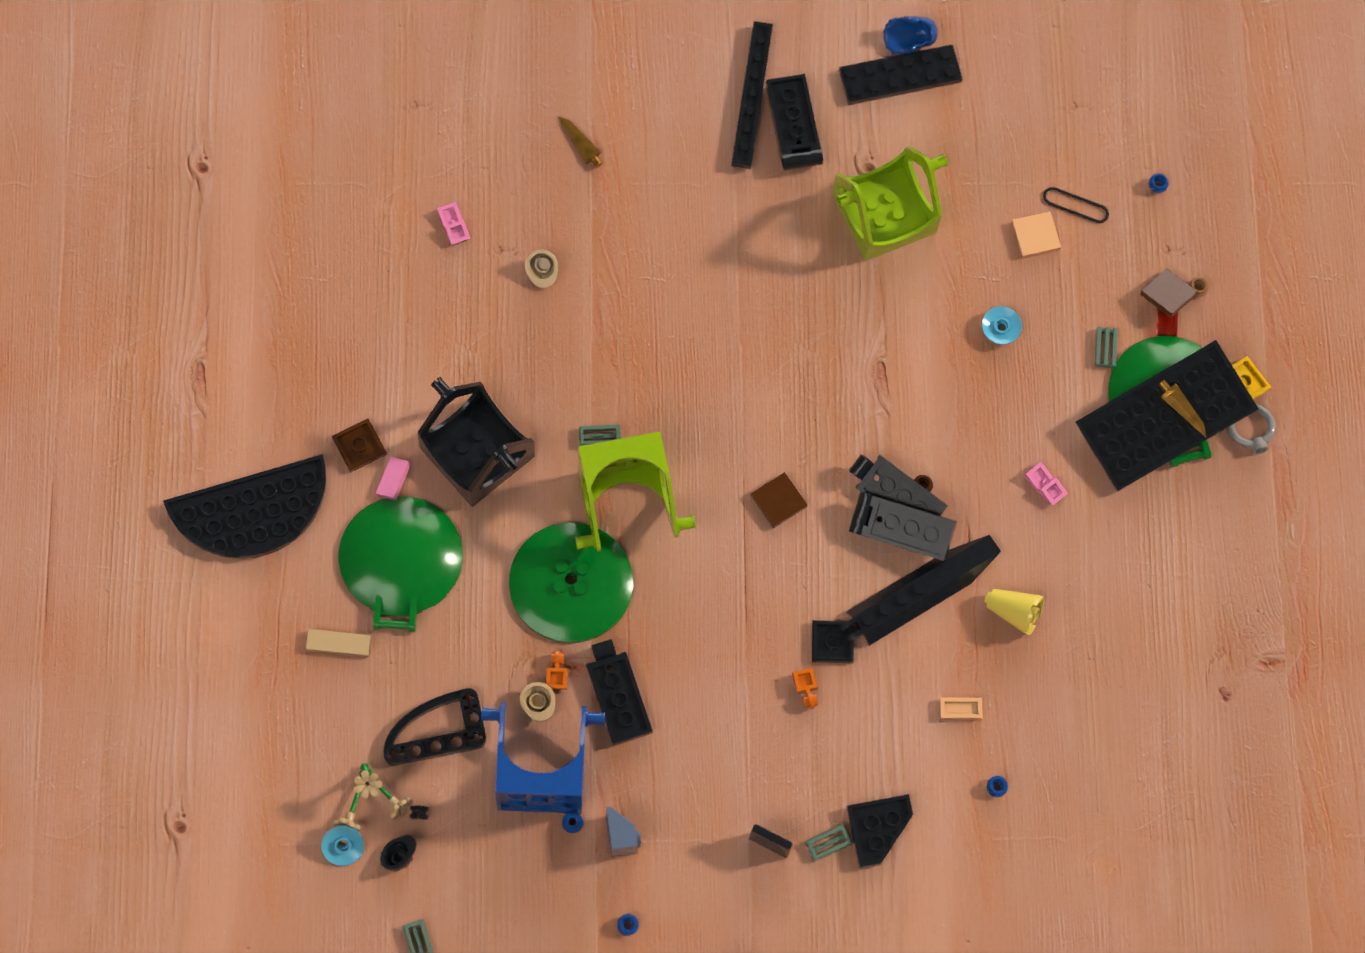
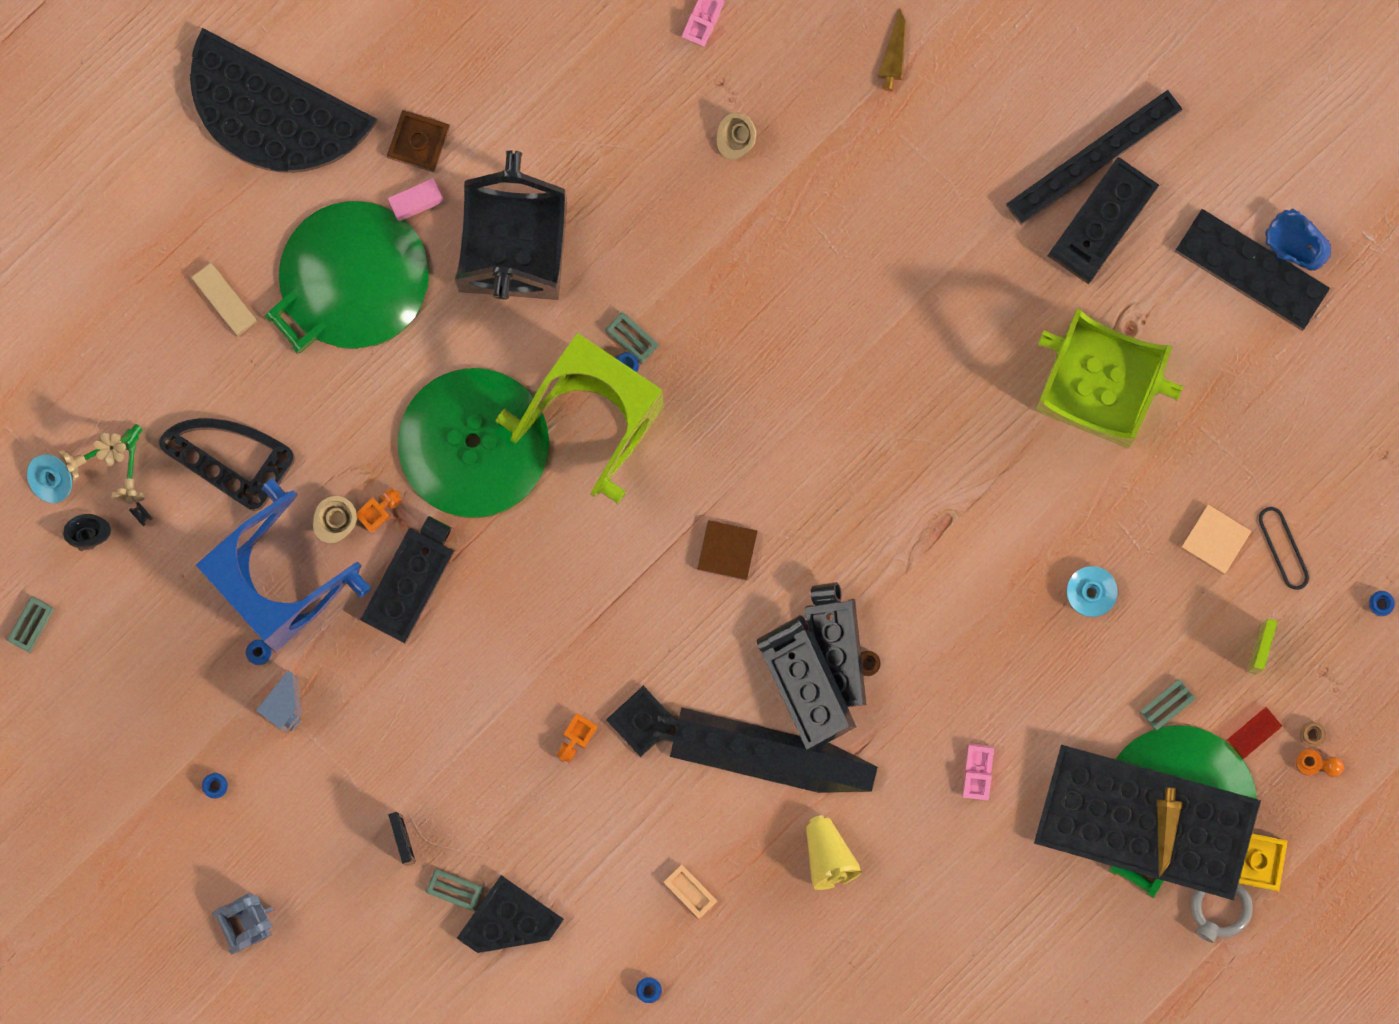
camera: 55 degrees right, 10 degrees up
(1124, 264) = (1262, 646): none -> lime tile
(1168, 293) = (1277, 713): tile -> none
(1227, 293) = (1332, 766): none -> orange plate

